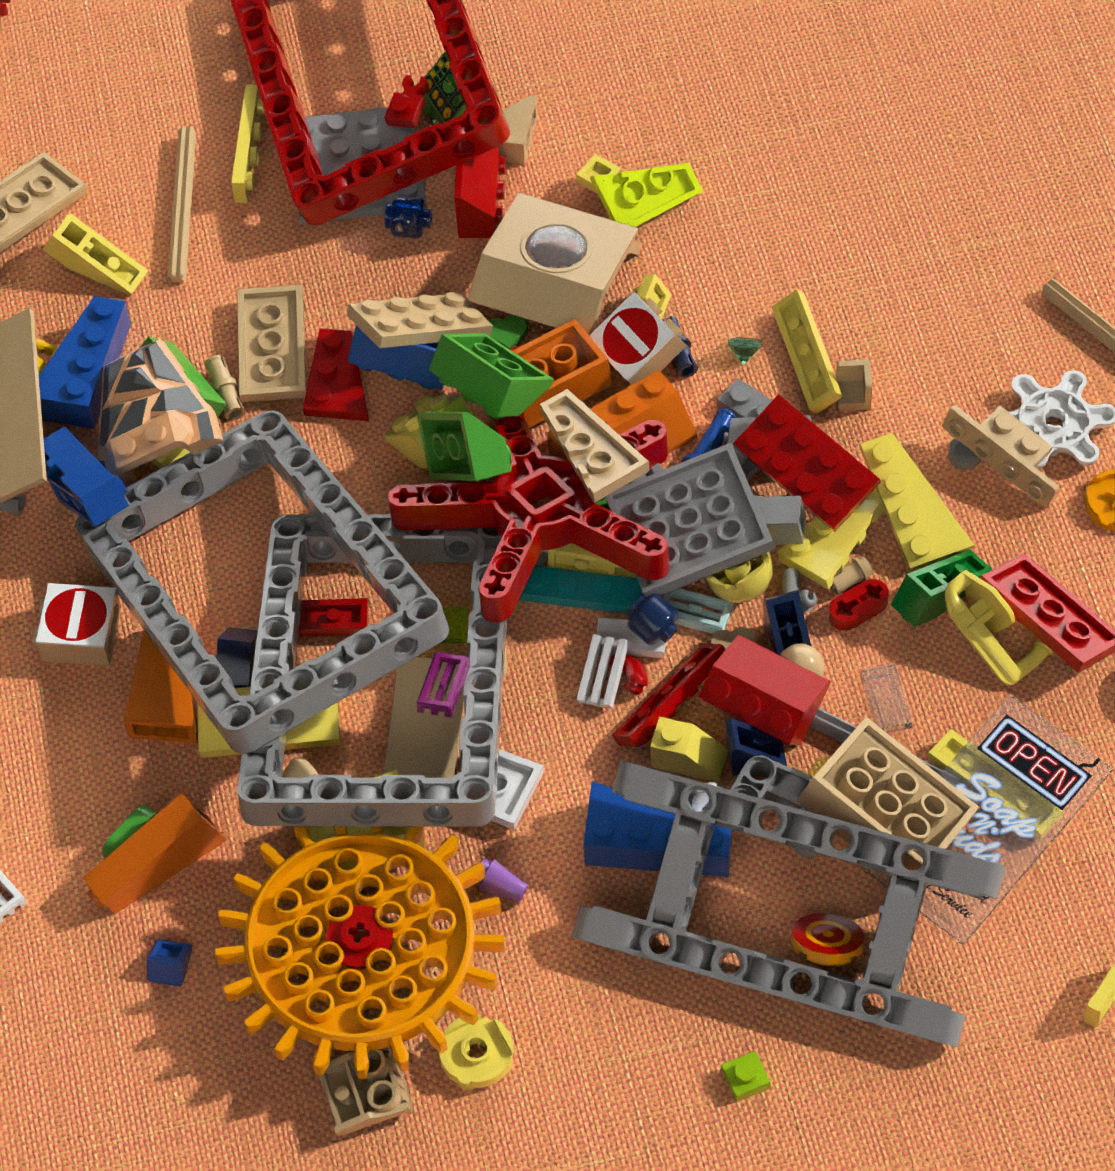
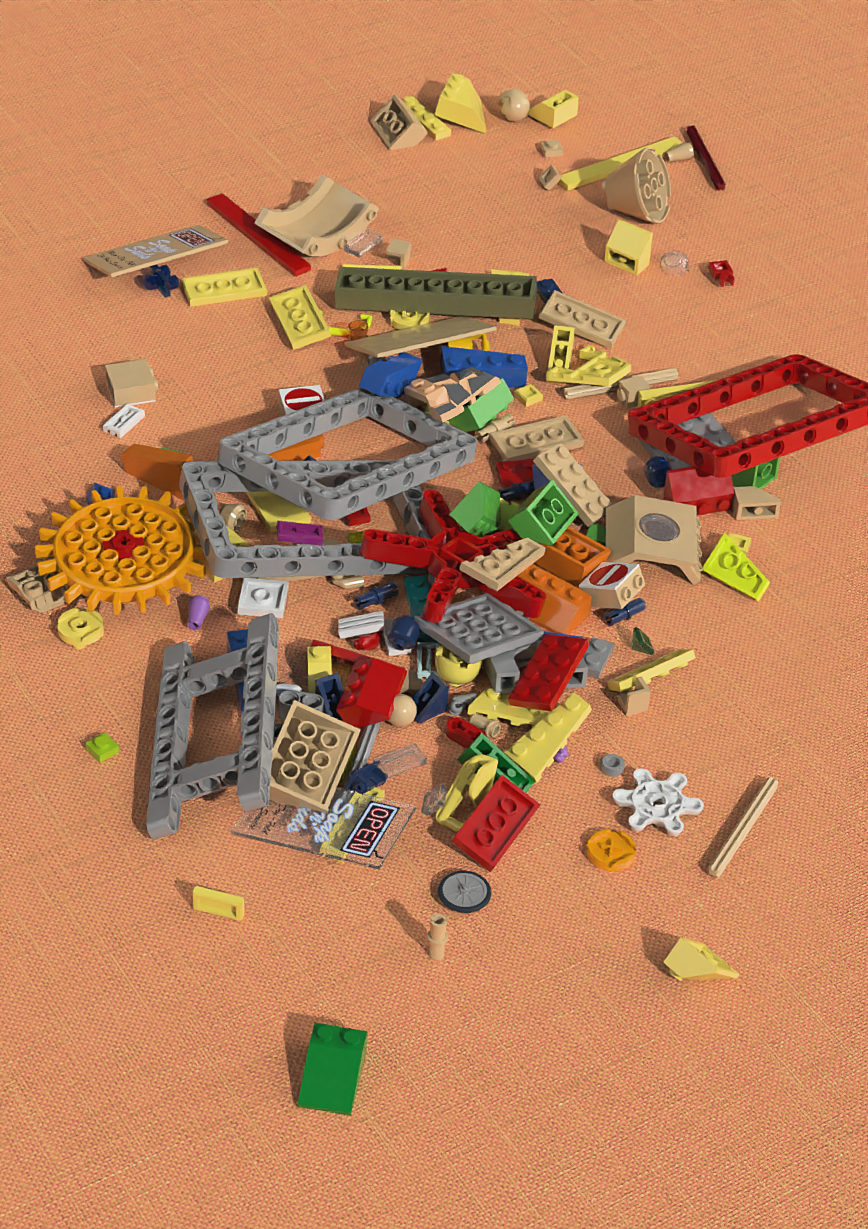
camera: 65 degrees right, 15 degrees down
(157, 324) = (528, 395): none -> light yellow tile
(158, 214) = (597, 371): none -> light yellow wing
(214, 192) = (629, 390): none -> tan brick
(377, 399) = (517, 491): none -> dark blue pin
(407, 107) = (726, 434): red plate -> none
(542, 638) = (375, 596): none -> dark blue pin
(655, 289) = (656, 590): light yellow tile -> none
(827, 938) = (200, 750): red tile -> none
(930, 744) = (366, 778): none -> dark blue hinge
(981, 674) = (434, 799): none -> clear tile
(1007, 448) = (620, 775): tan bracket -> none

